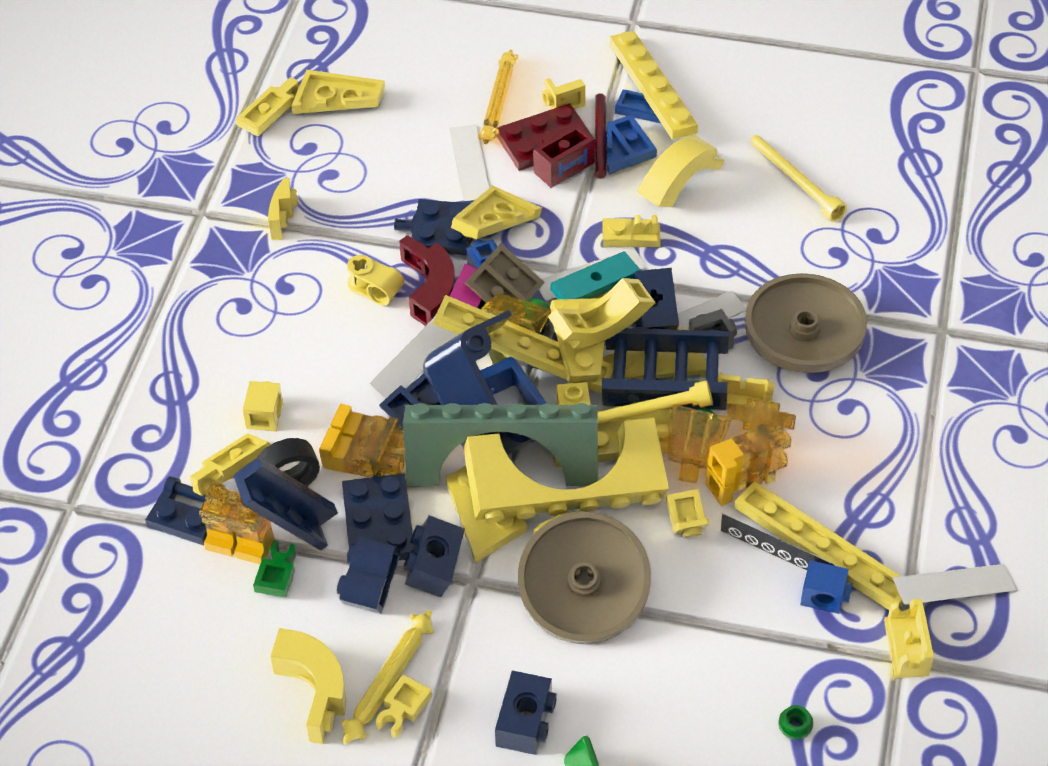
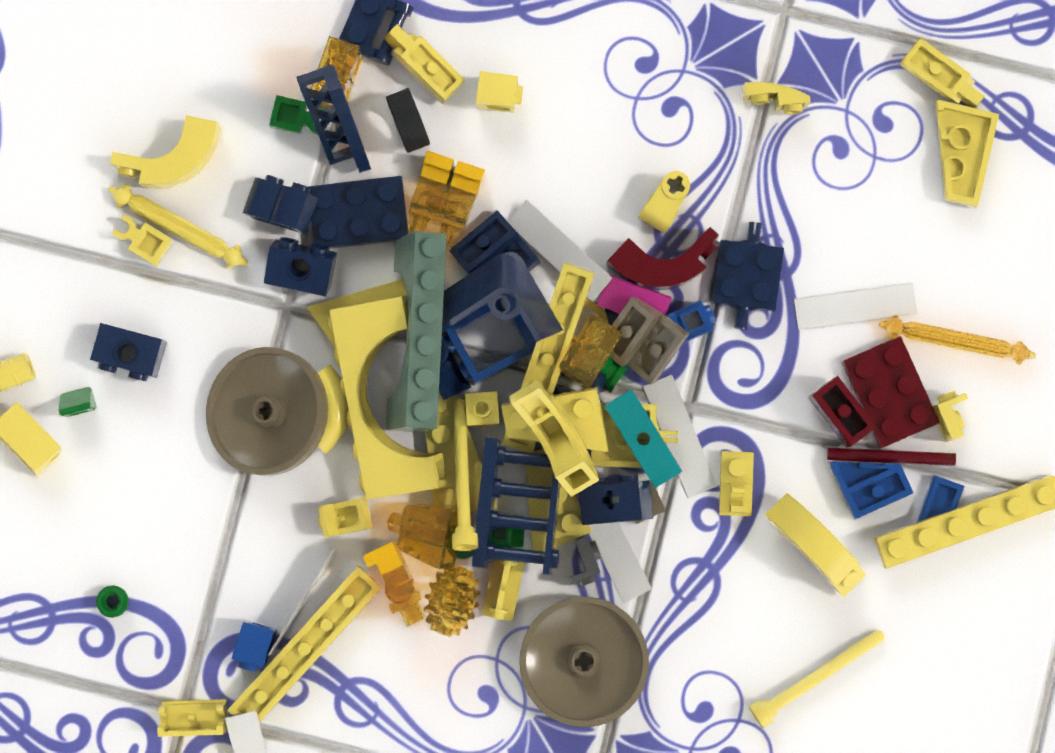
camera: 90 degrees right, 35 degrees up
(494, 212) = (756, 330): light yellow wing -> none

